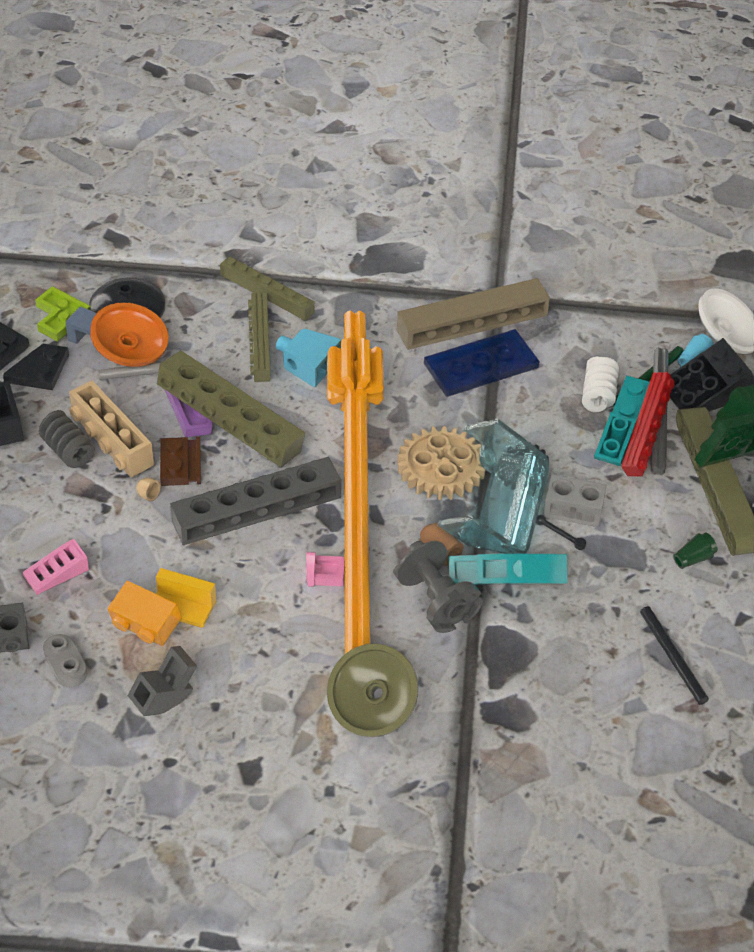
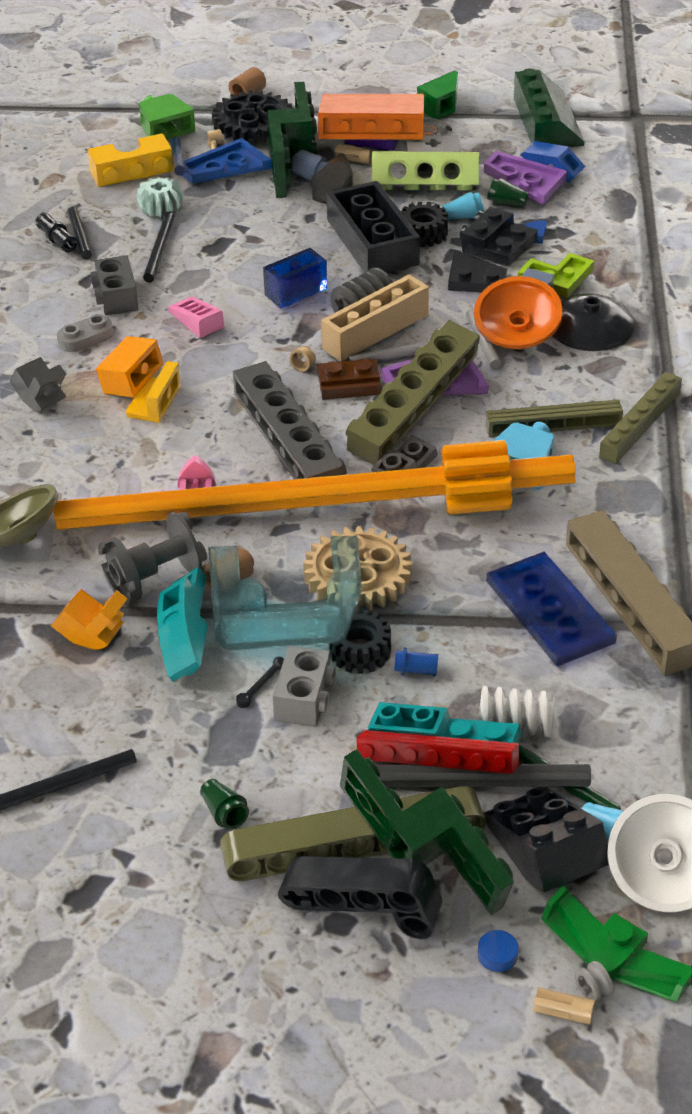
camera: 90 degrees right, 5 degrees down
(32, 481) = (295, 277): none -> clear blue brick
(147, 427) = (390, 353): none -> light grey bar
(315, 433) = (411, 455): none -> dark grey slope
(507, 630) = (89, 622): none -> light orange brick
(545, 436) = (416, 662): none -> blue pin

